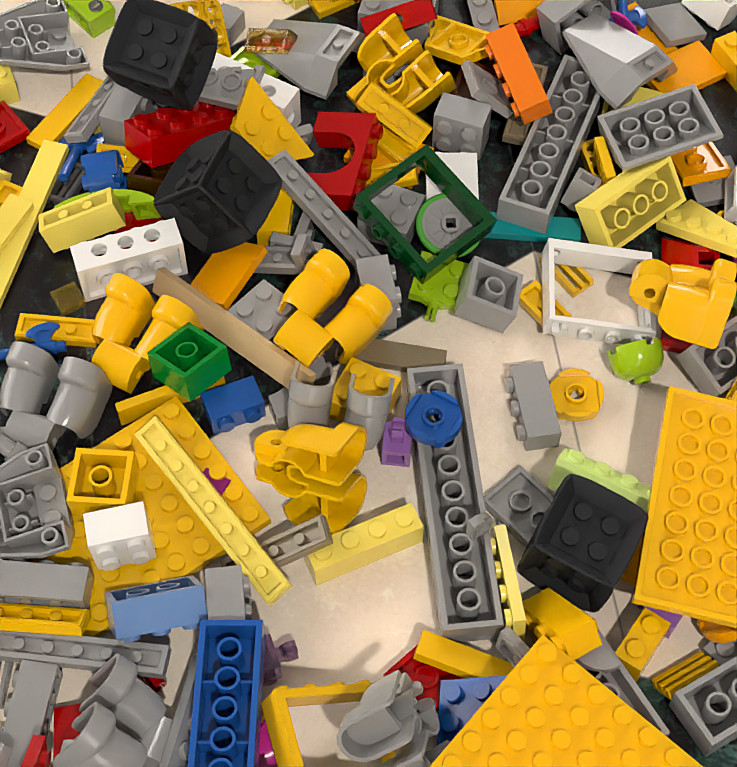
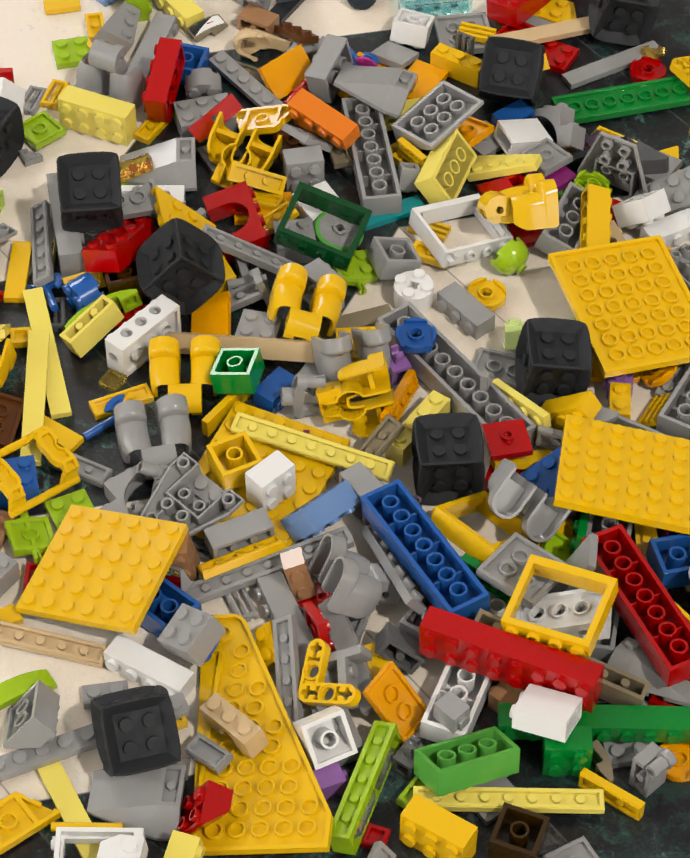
camera: 30 degrees left, 10 degrees down
(65, 683) = (298, 574): none -> medium nougat brick
(239, 426) = (294, 395): none -> light grey connector
(356, 614) = (447, 457): none -> black piece
(366, 493) = (402, 395): none -> light orange tile
(449, 627) = (507, 439): none -> red plate
(484, 350) = (414, 288): none -> white brick

